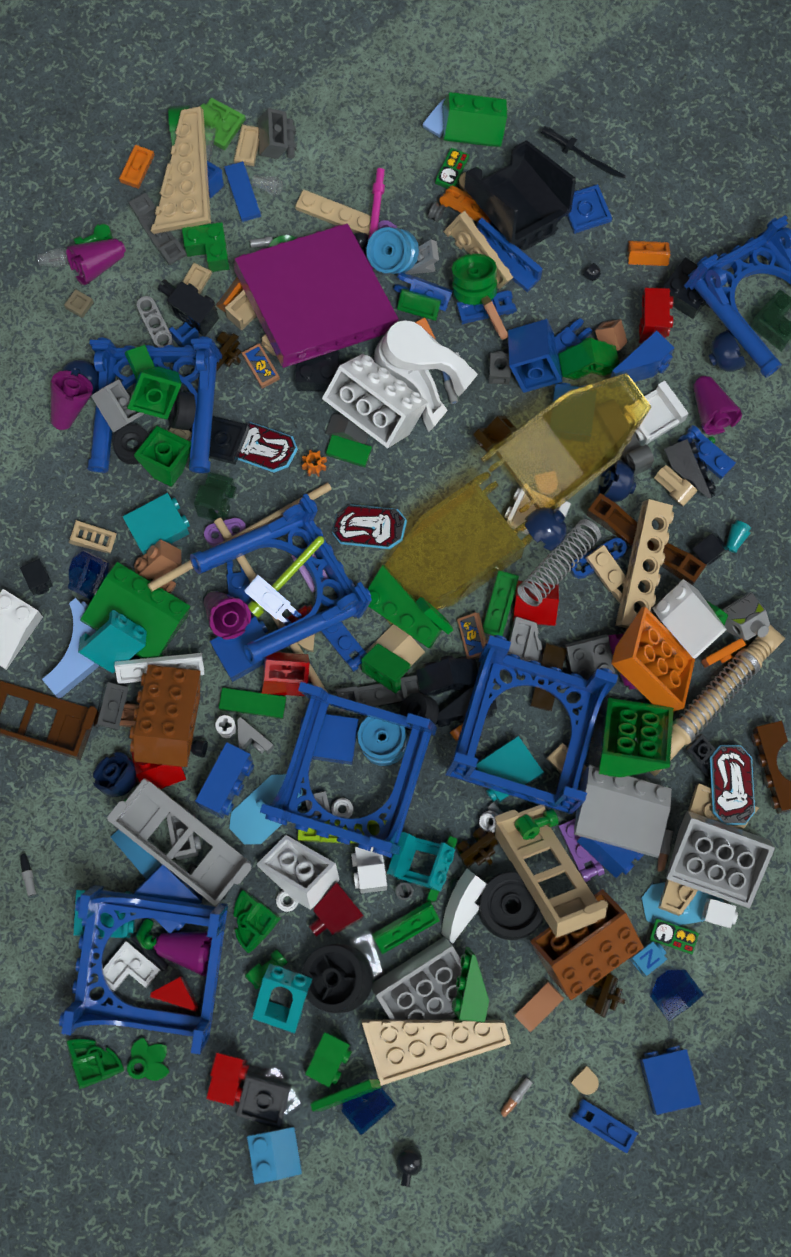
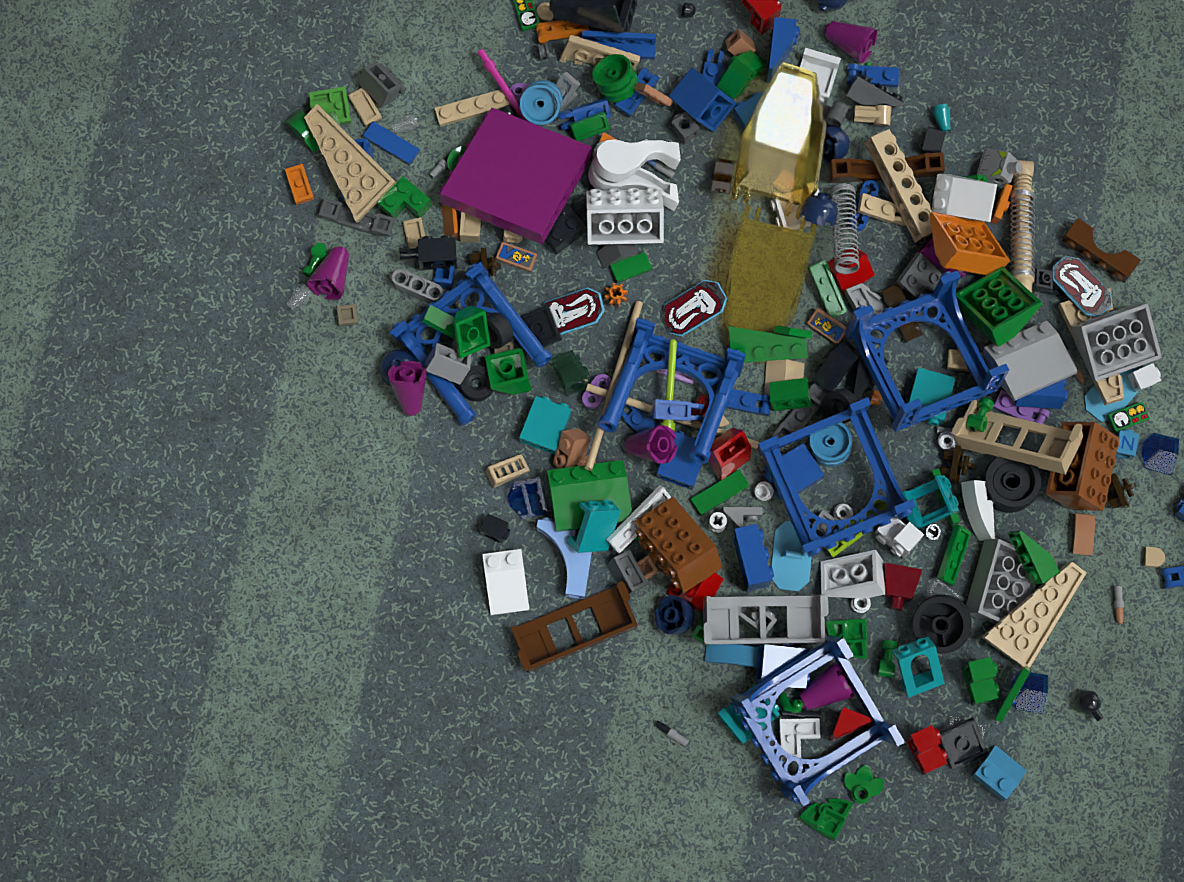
camera: 40 degrees left, 0 degrees up
(289, 732) = (764, 491): none -> white plate

